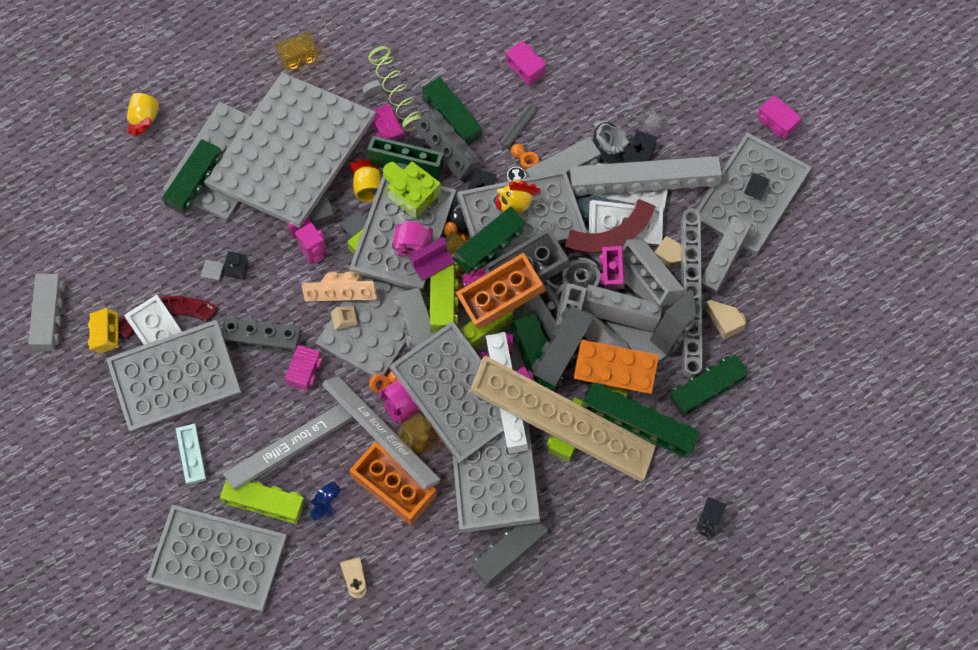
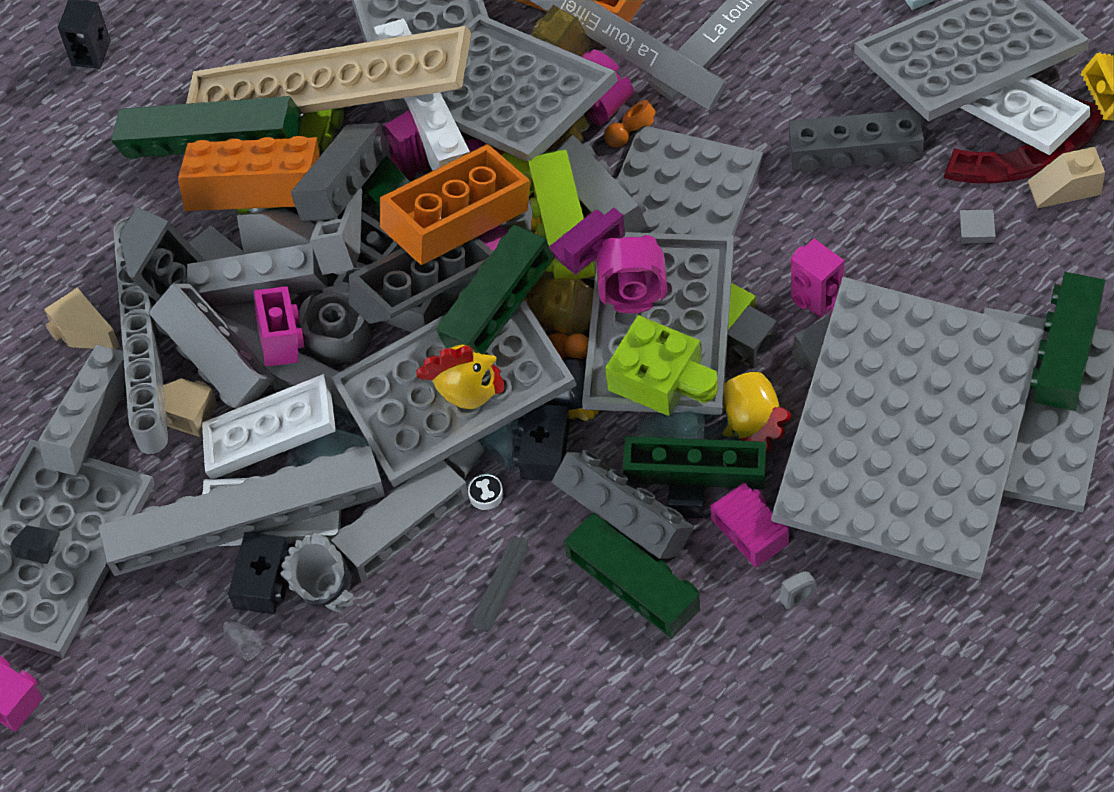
camera: 175 degrees right, 10 degrees down
(153, 282) = (1068, 178): none -> tan slope
(236, 265) = (937, 230): black brick -> none
(296, 51) = (969, 624): clear yellow brick -> none
(303, 368) = (768, 111): dark pink brick -> none
(340, 287) = (752, 234): light nougat bracket -> none
(343, 317) = (723, 186): tan slope -> none
(383, 59) = (819, 644): yellowish green piece -> none
(518, 151) = (490, 534): orange plate -> none
(525, 62) = (508, 697): dark pink brick -> none
(628, 230) = (280, 385): dark red tile -> none
(708, 385) = (91, 225): dark green brick -> none

